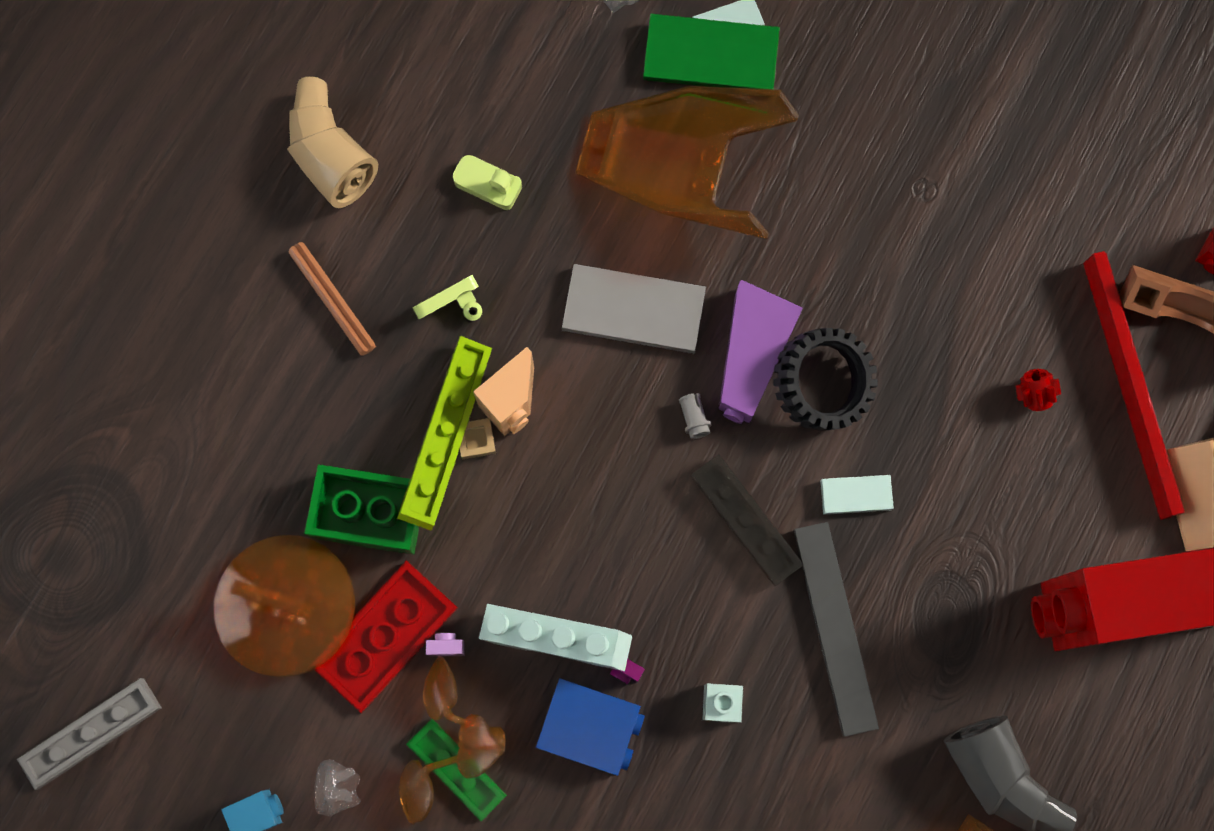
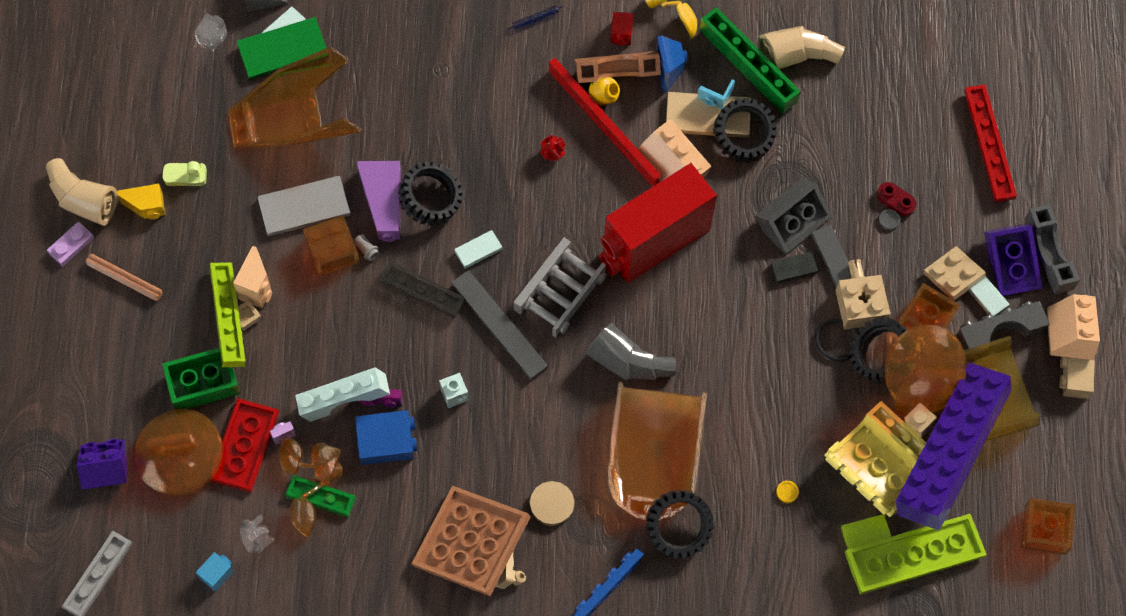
camera: 25 degrees left, 10 degrees down
(171, 570) = (102, 463): none -> dark purple slope
(281, 213) = (70, 244): none -> lavender plate
(412, 197) = (144, 200): none -> yellow slope
(460, 291) = (198, 239): yellowish green piece -> none
(644, 390) = (331, 245): none -> clear orange brick
(951, 581) = (551, 269): none -> light grey fence
(1100, 173) = (535, 19): none -> clear blue piece
(1156, 336) = (604, 91): none -> yellow head

